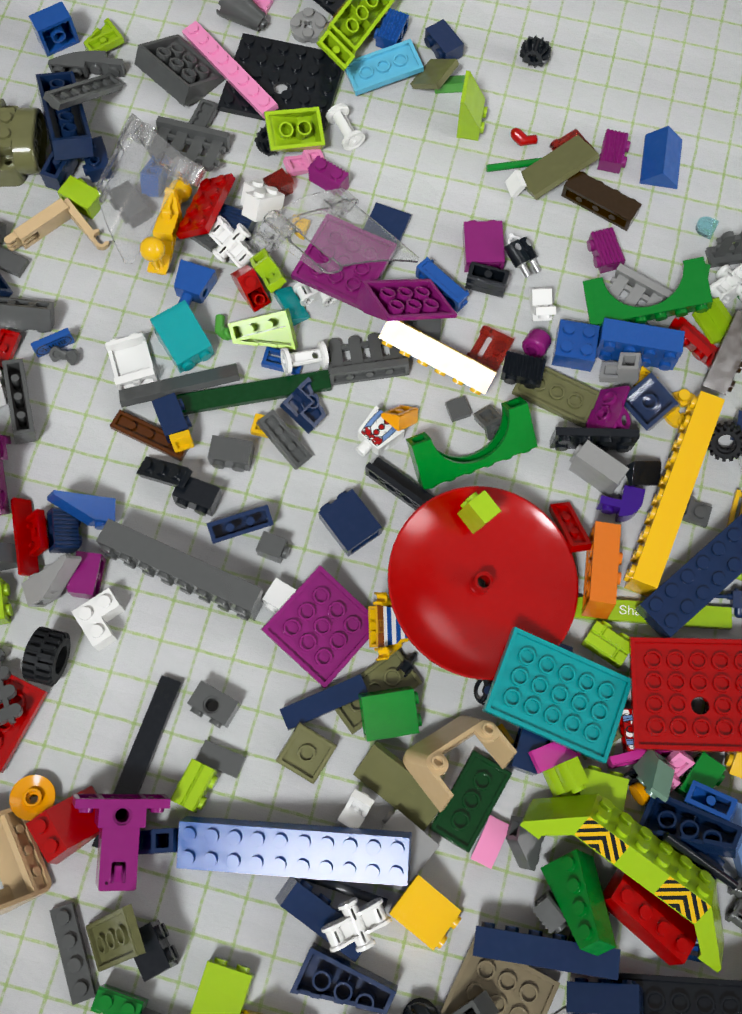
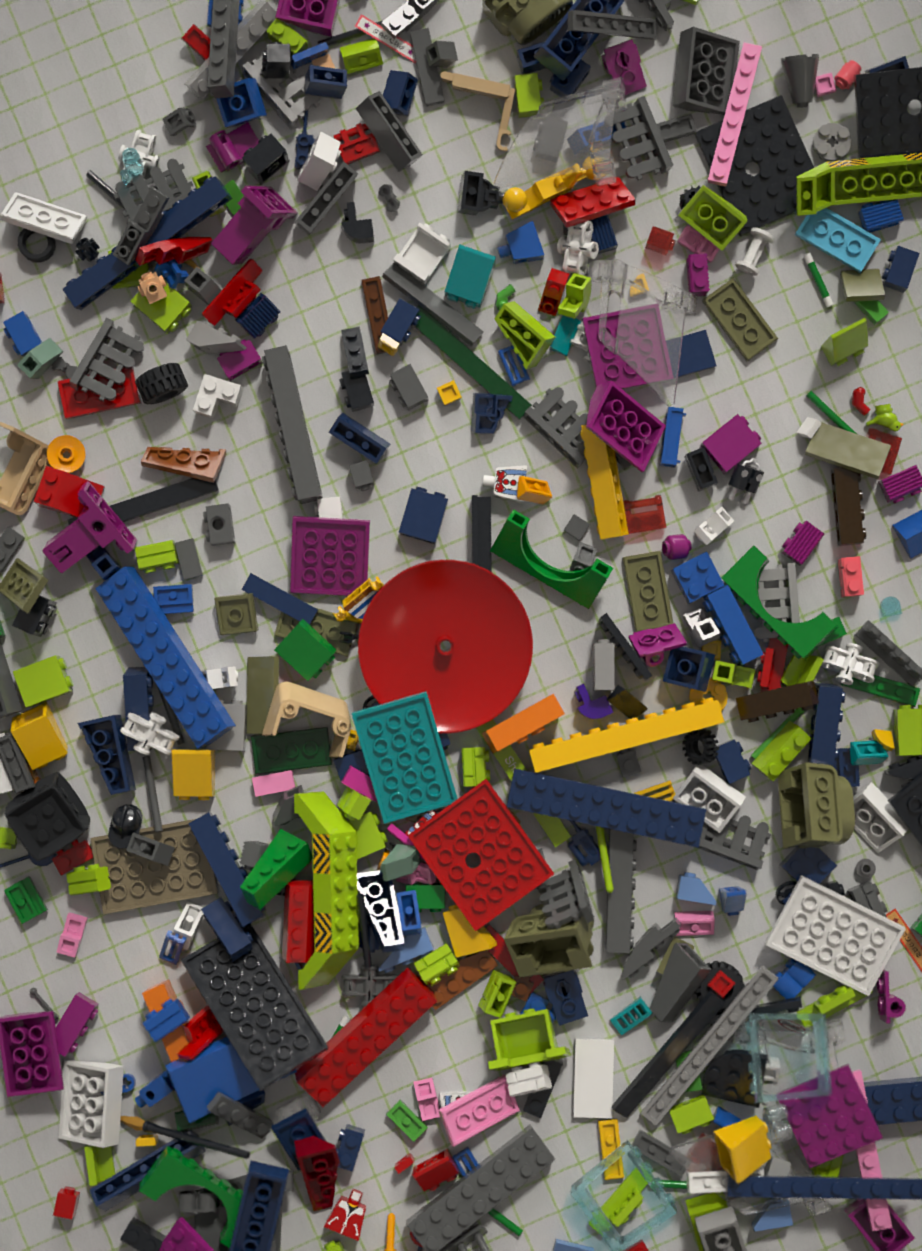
camera: 55 degrees right, 15 degrees up
(61, 339) = (390, 179): blue tile -> none
(67, 398) = (357, 230): none -> black brick
(86, 508) = (285, 322): blue slope -> none
(117, 111) = (625, 62): none -> magenta piece
(123, 285) = (477, 194): none -> black brick
(145, 681) = (193, 464): none -> dark orange wing
(246, 800) = (174, 598): none -> blue plate
(260, 199) = (630, 241): white brick -> none
(284, 439) = (448, 418): dark grey plate -> none
(304, 357) = (524, 380): white hose -> none
(388, 175) = (740, 319): none -> olive tile
(404, 103) = (818, 280): none -> green bar
(415, 971) = (152, 794): none -> dark grey bar
(478, 511) = (487, 605): lime brick -> none
(523, 370) = (642, 553): black brick -> none
(551, 128) = (885, 418): none -> lime animal
(570, 527) = (541, 678): red plate -> none
(661, 234) = (850, 576): none -> coral brick
(681, 373) = (733, 674): none -> lime brick

